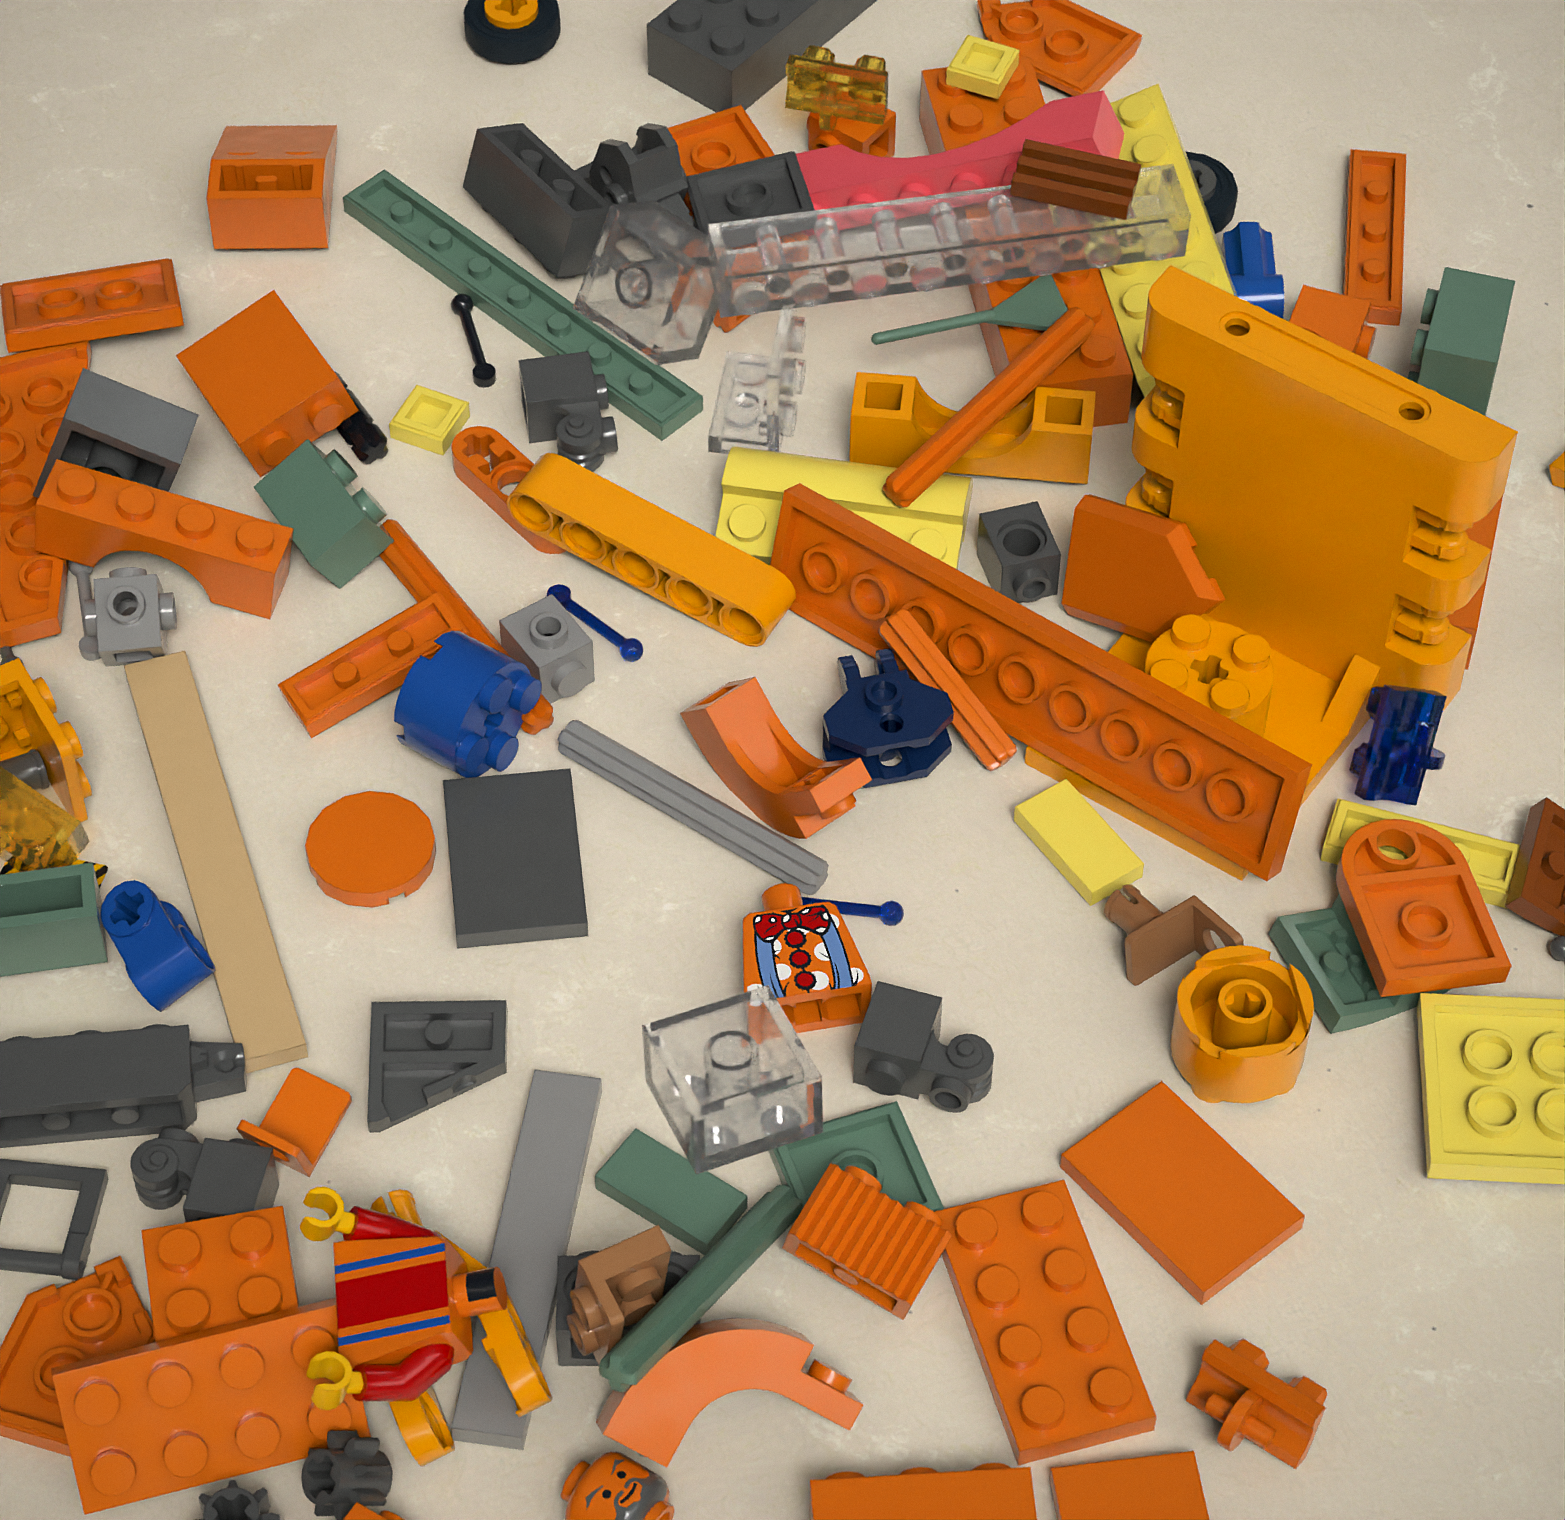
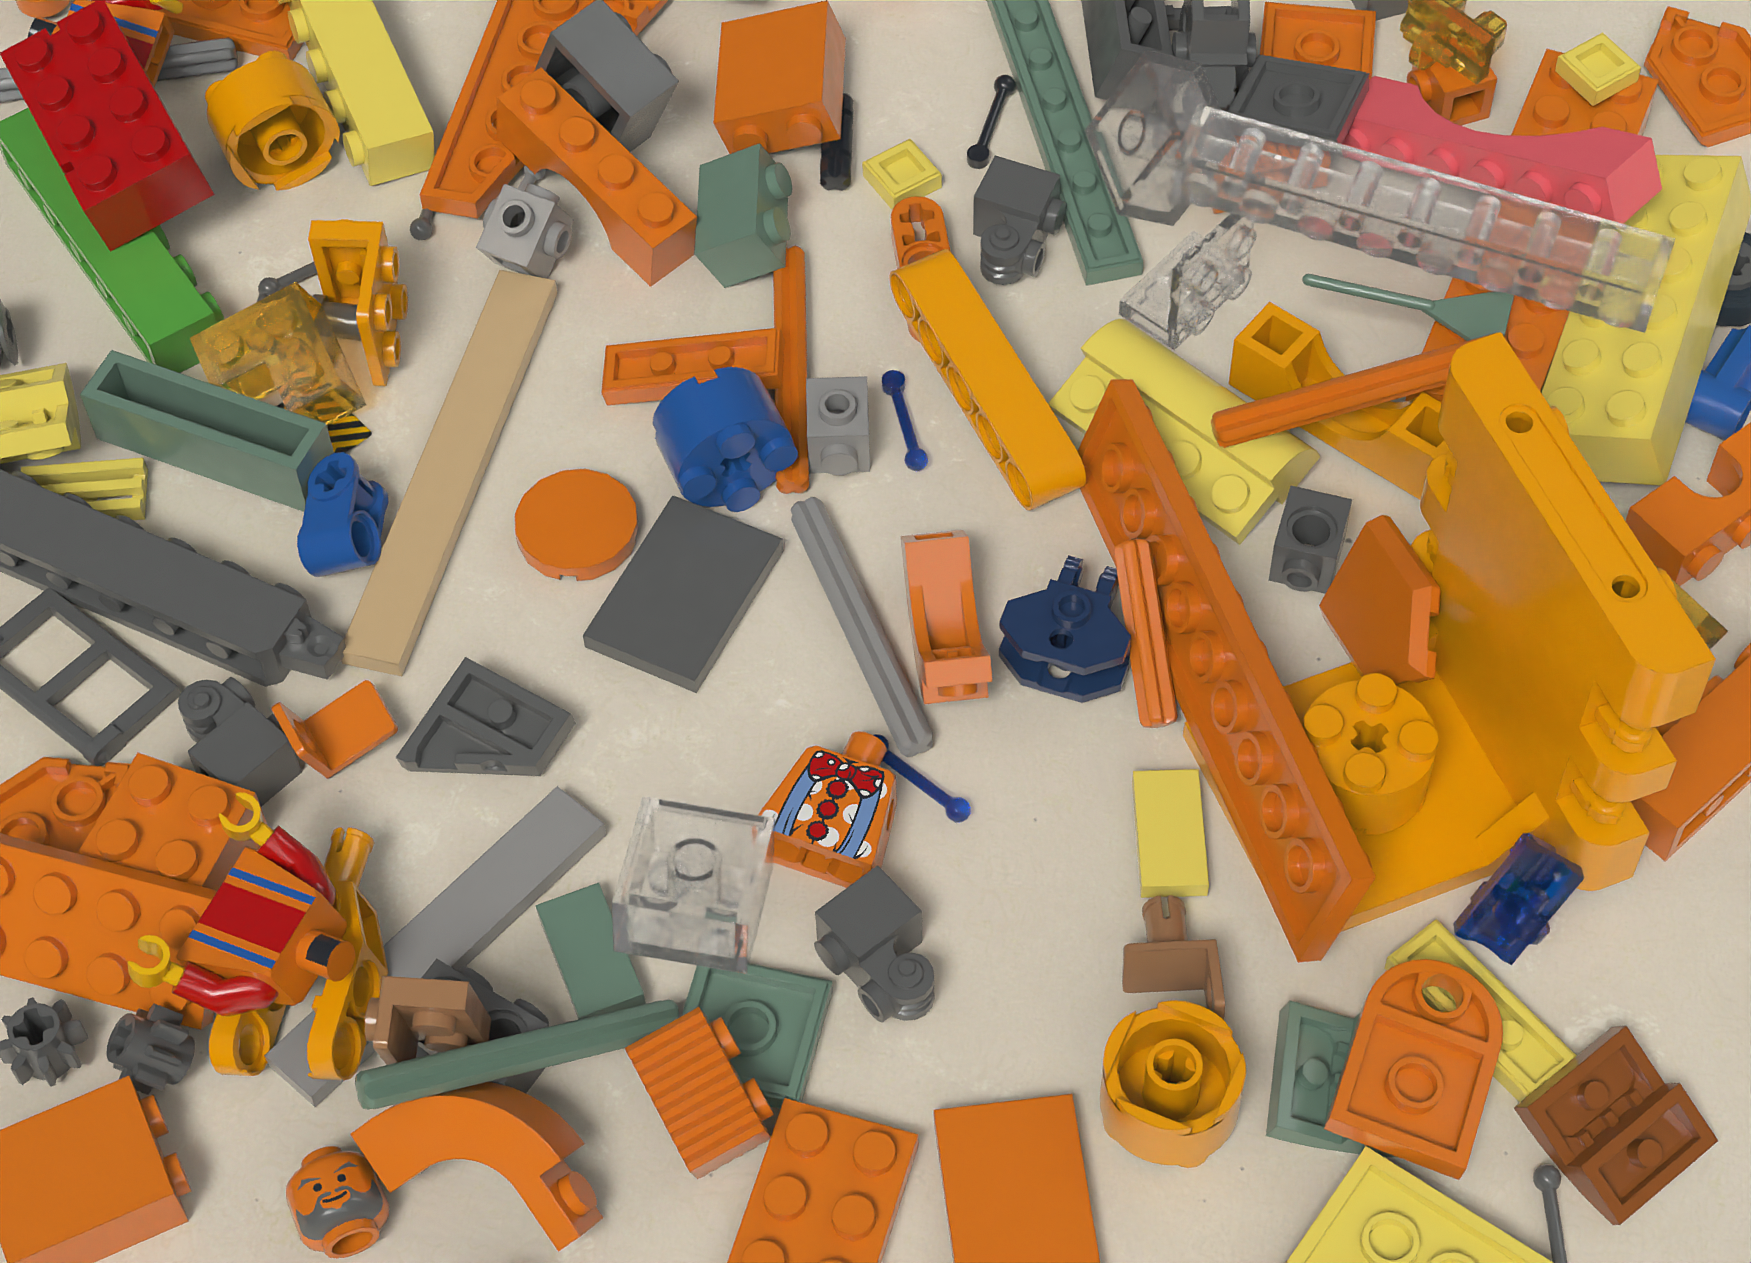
camera: 35 degrees right, 5 degrees up
(1078, 173) = (1571, 207): dark orange tile -> none

